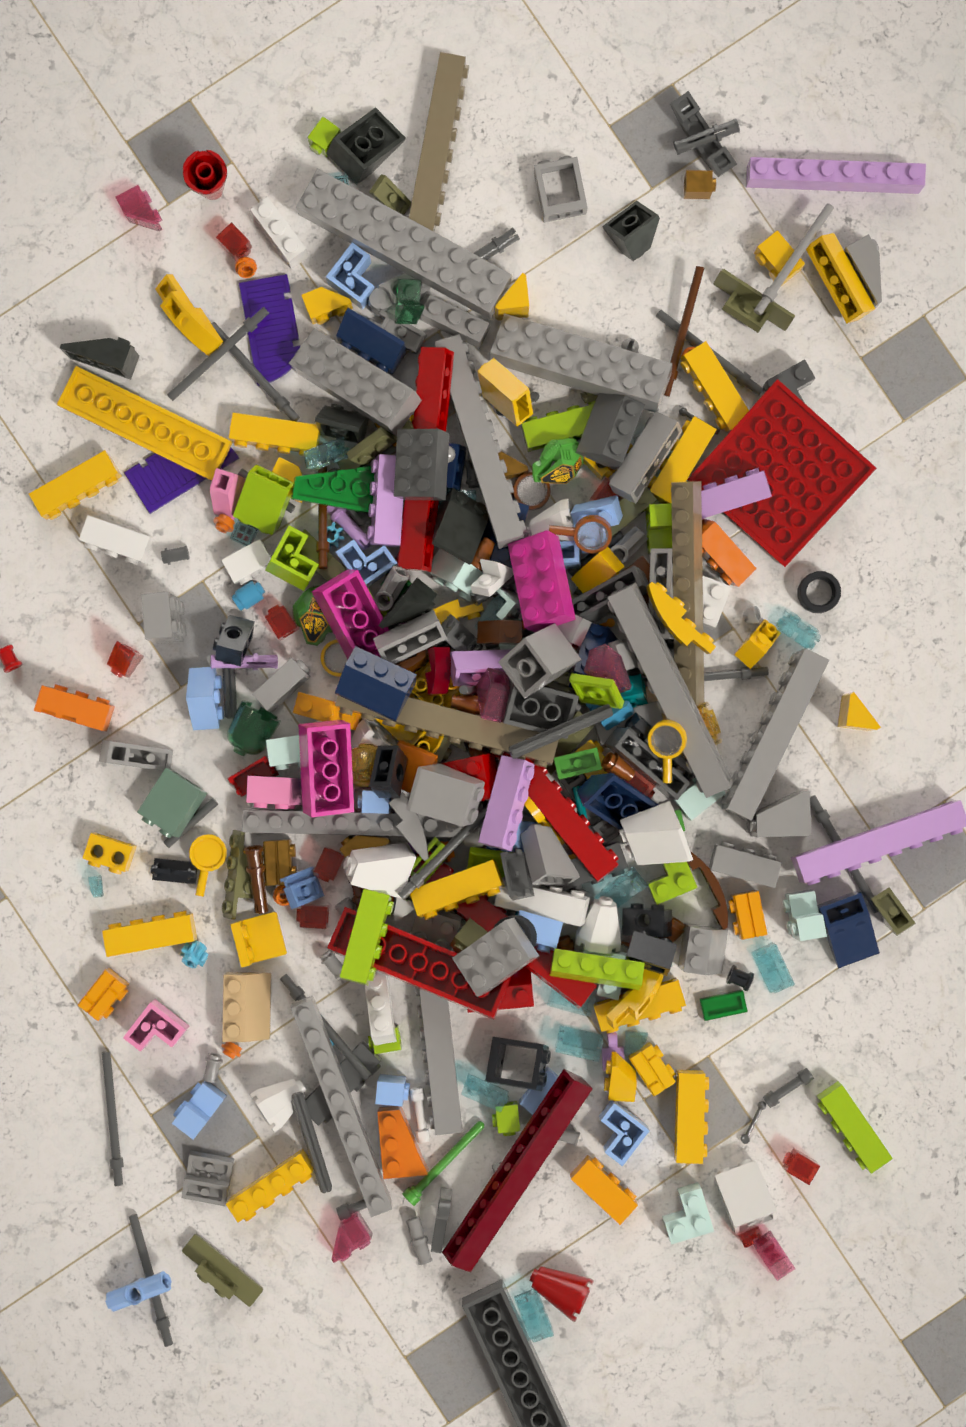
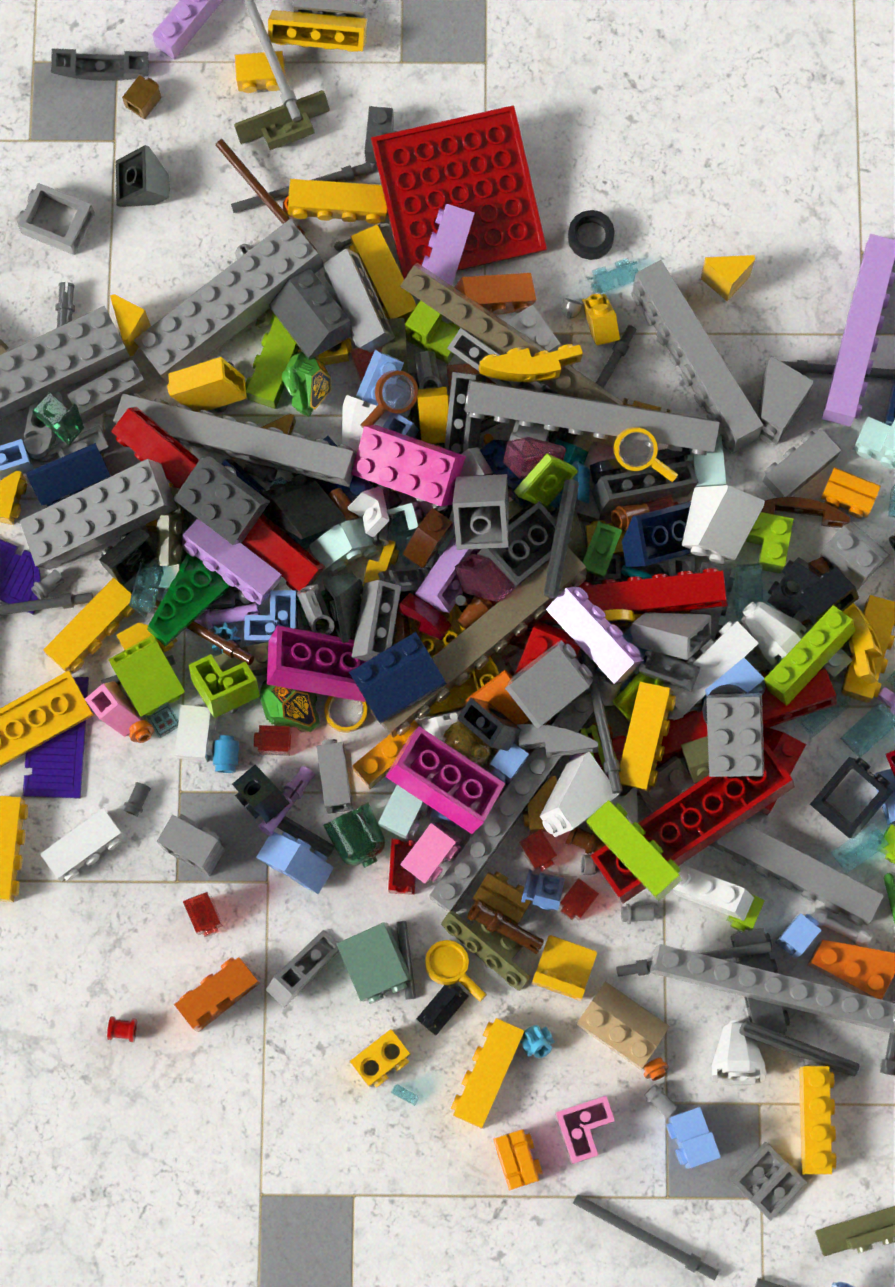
camera: 55 degrees left, 10 degrees down
(280, 899) = (543, 917): orange plate -> none
(284, 381) = (47, 584): none -> light grey pin
(530, 492) = (315, 426): clear piece -> none
(730, 128) = (111, 35): dark grey pin -> none

